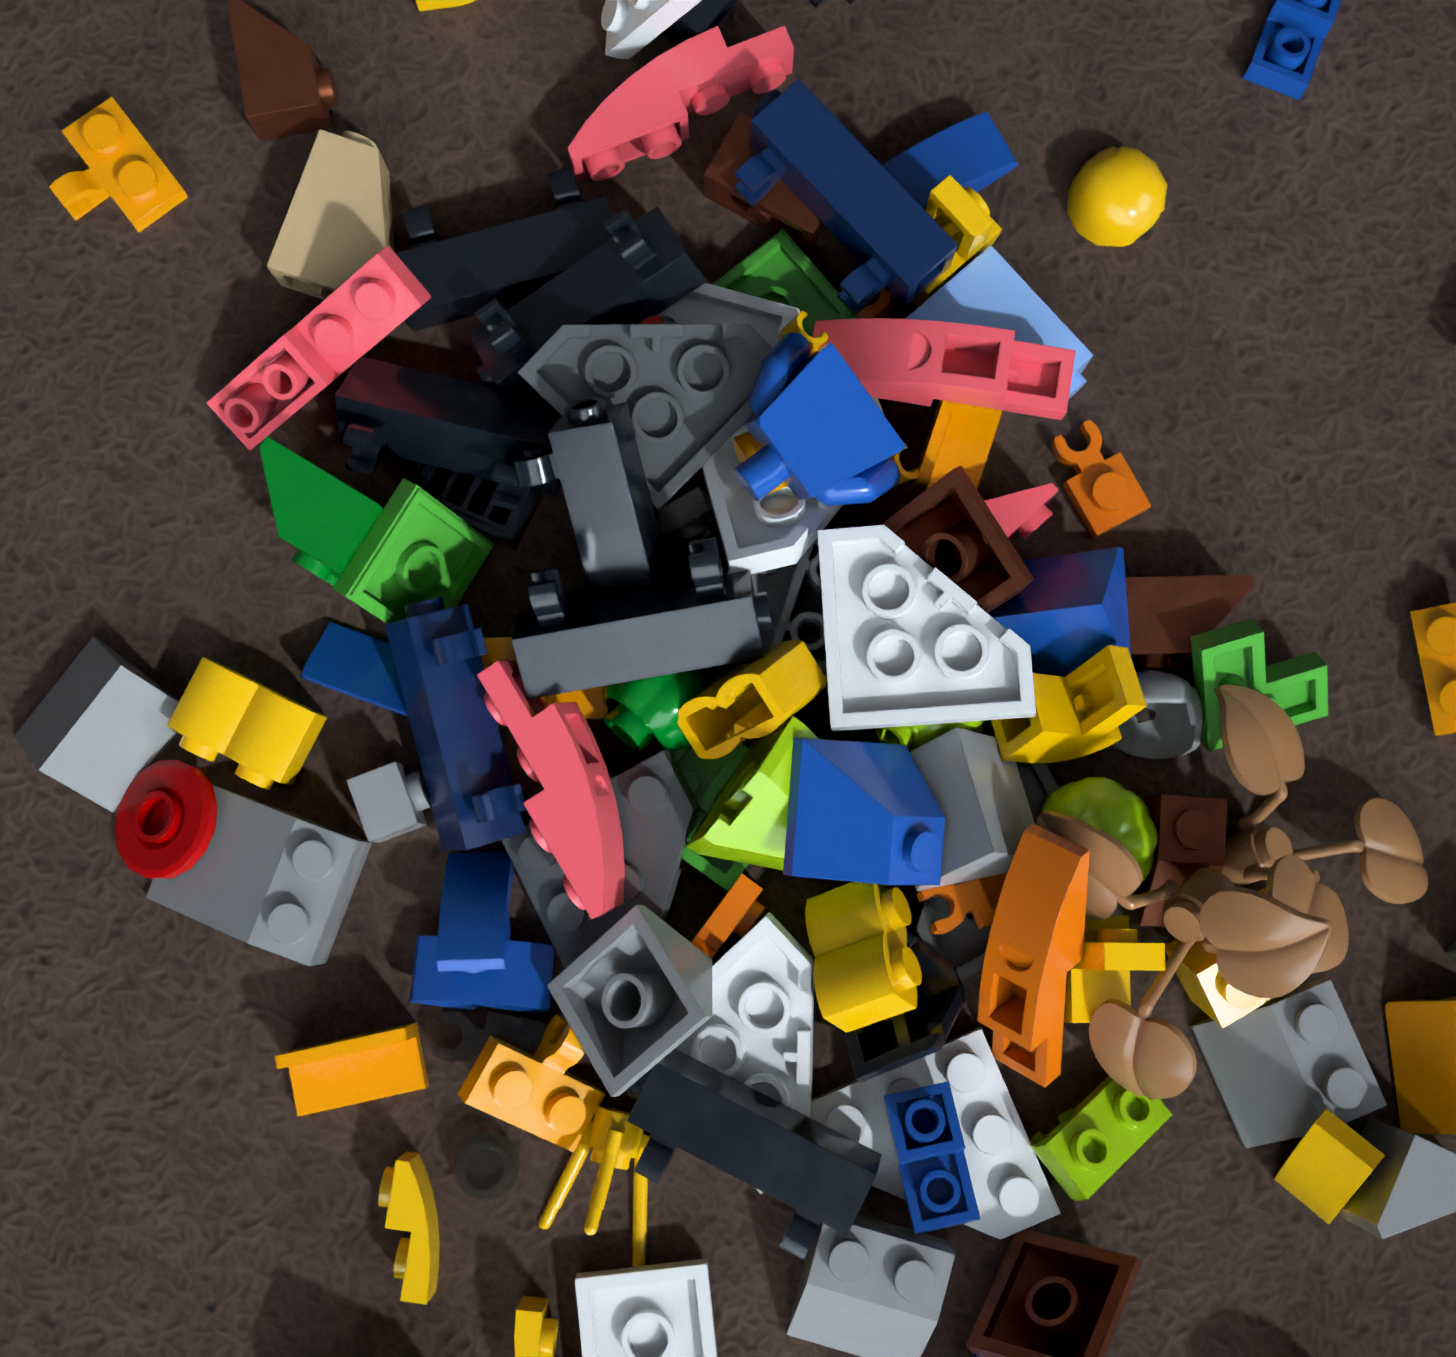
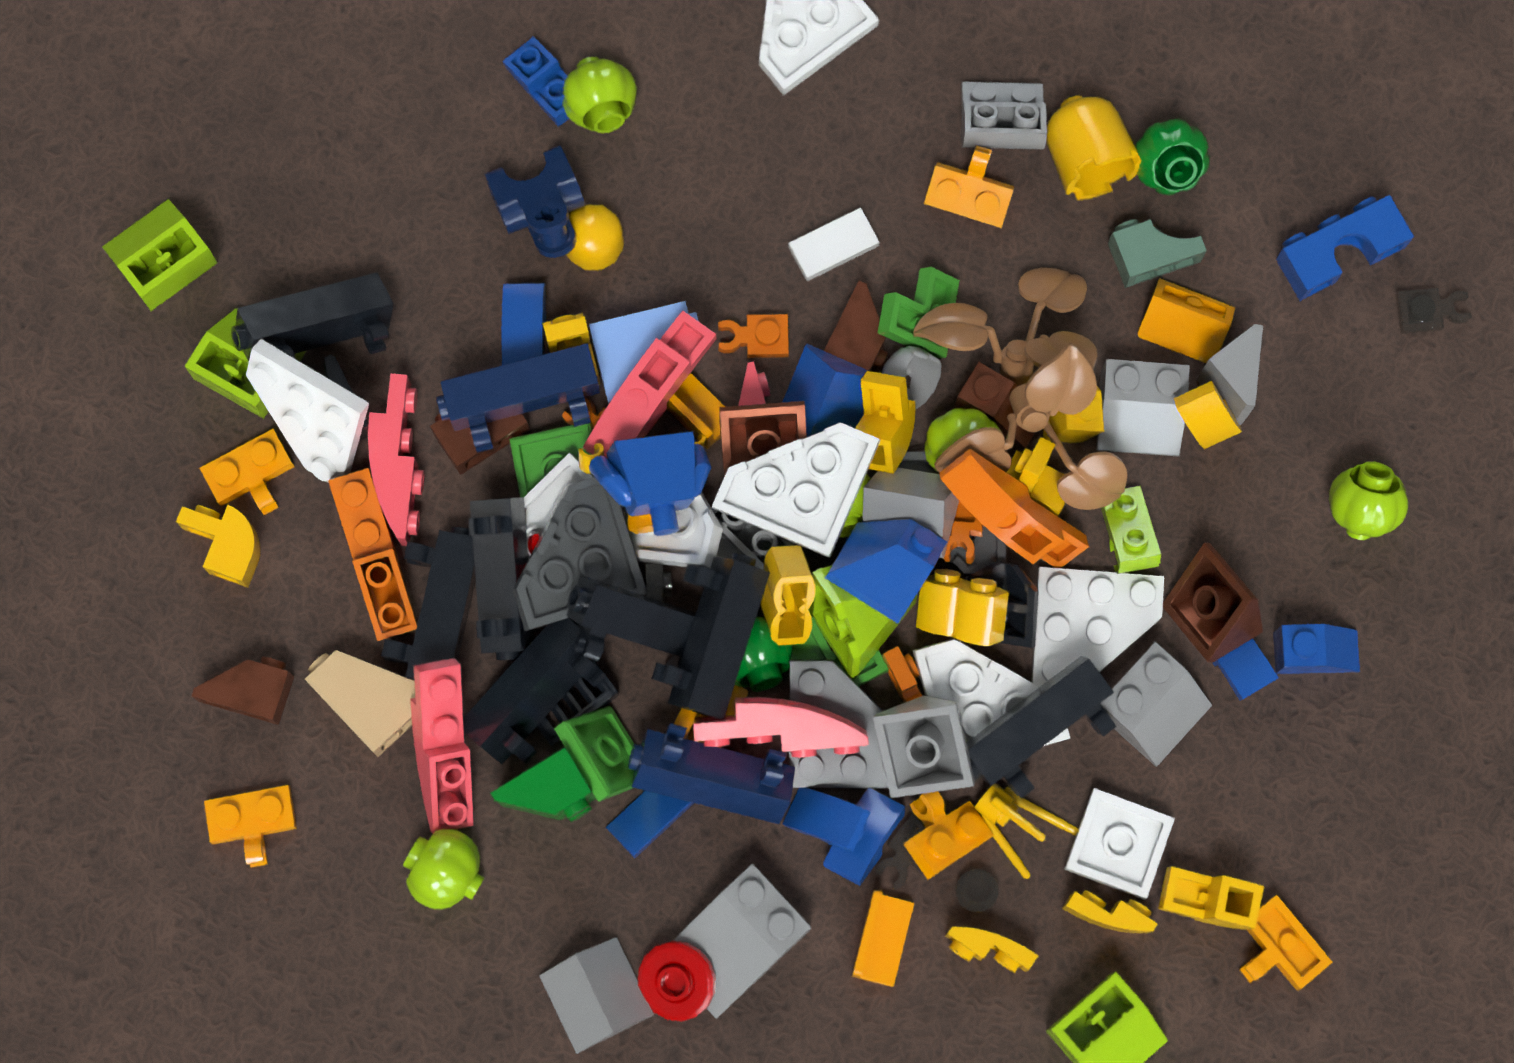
camera: 65 degrees left, 5 degrees down
(167, 439) = (443, 869): none -> lime plant
(245, 723) = (643, 904): yellow brick -> none
(389, 801) = (735, 839): light grey plate -> none
(526, 145) = (373, 554): none -> orange slope
(931, 1158) = (1096, 630): blue slope -> none
(1123, 97) = (540, 203): none -> dark blue piece
(1283, 519) = (833, 244): none -> white tile
(1328, 91) = (599, 95): none -> lime plant

